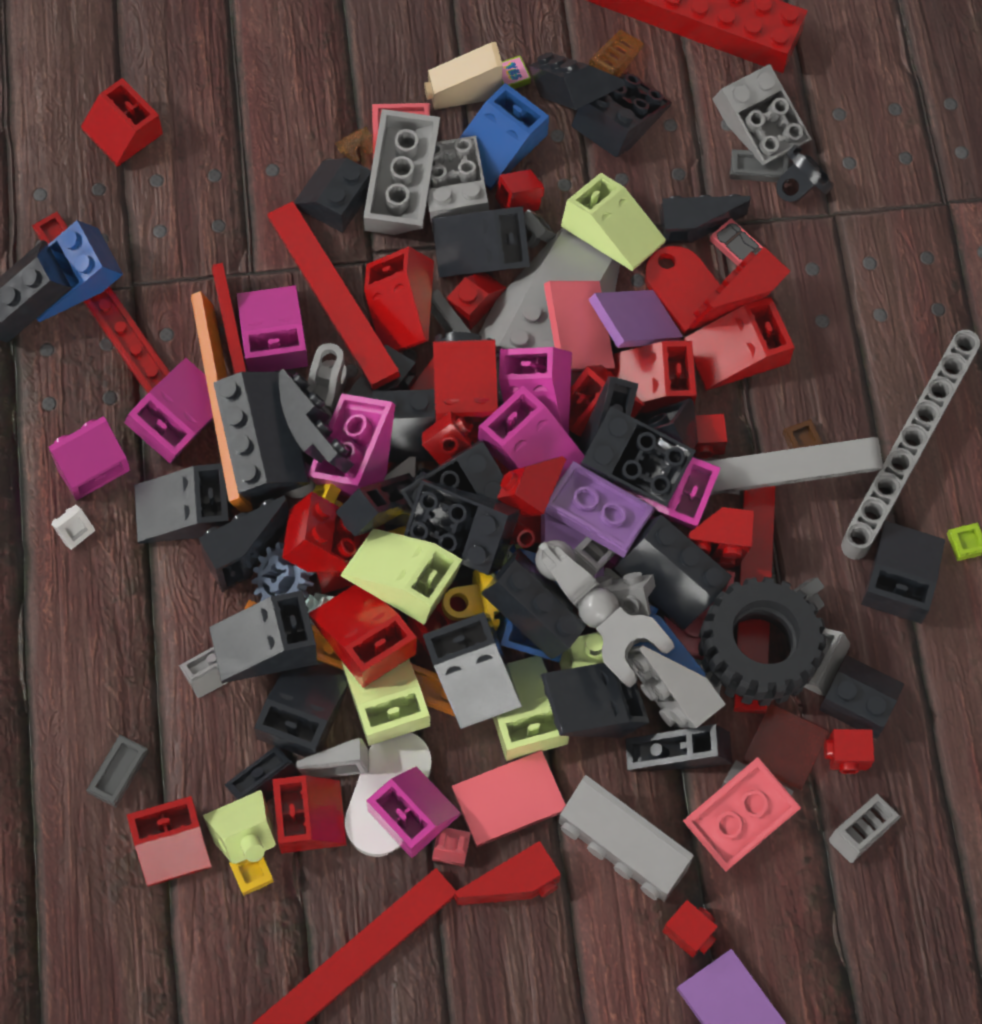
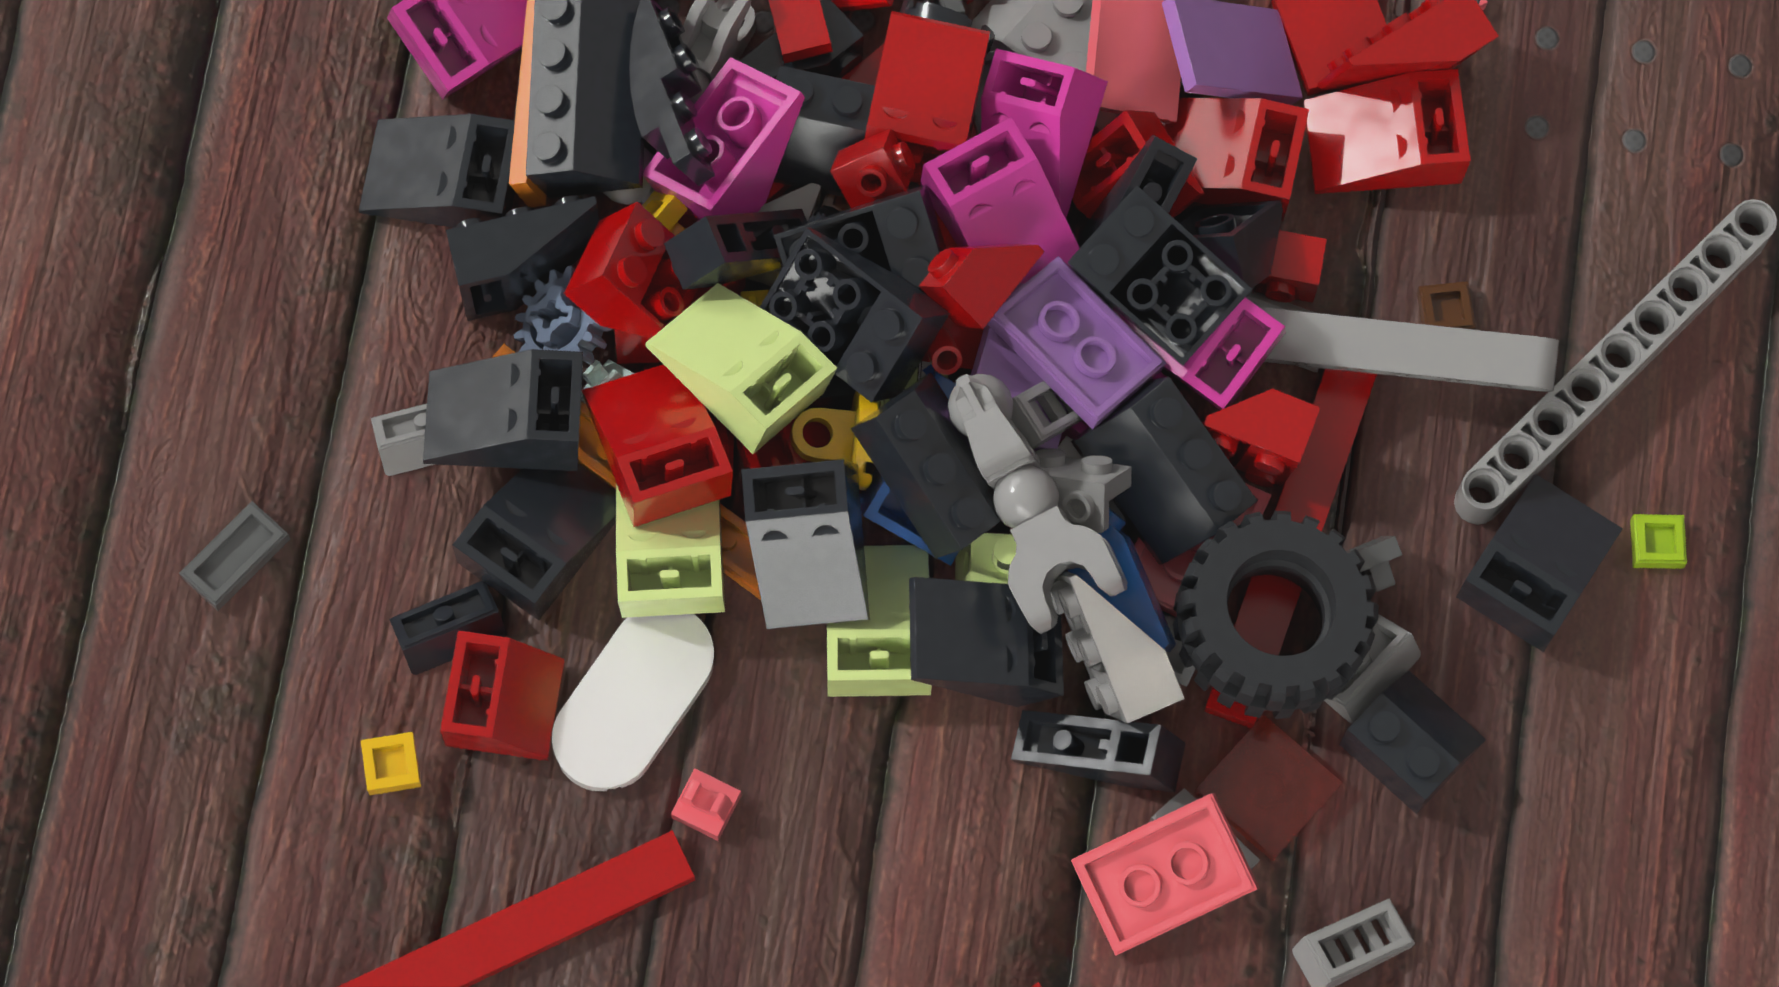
camera: 15 degrees right, 5 degrees up
(73, 526) = (266, 162): white tile -> none
(89, 457) = (317, 60): dark pink slope -> none
(169, 841) = (280, 682): slope -> none
(242, 828) = (397, 693): yellowish green torso -> none
(341, 760) = (574, 628): light grey slope -> none
(411, 810) = (658, 733): dark pink slope -> none
(508, 798) = (815, 755): coral tile -> none
(518, 878) = (789, 880): red slope -> none
(625, 839) = (970, 865): light grey slope -> none
(850, 750) = (1365, 820): red brick -> none

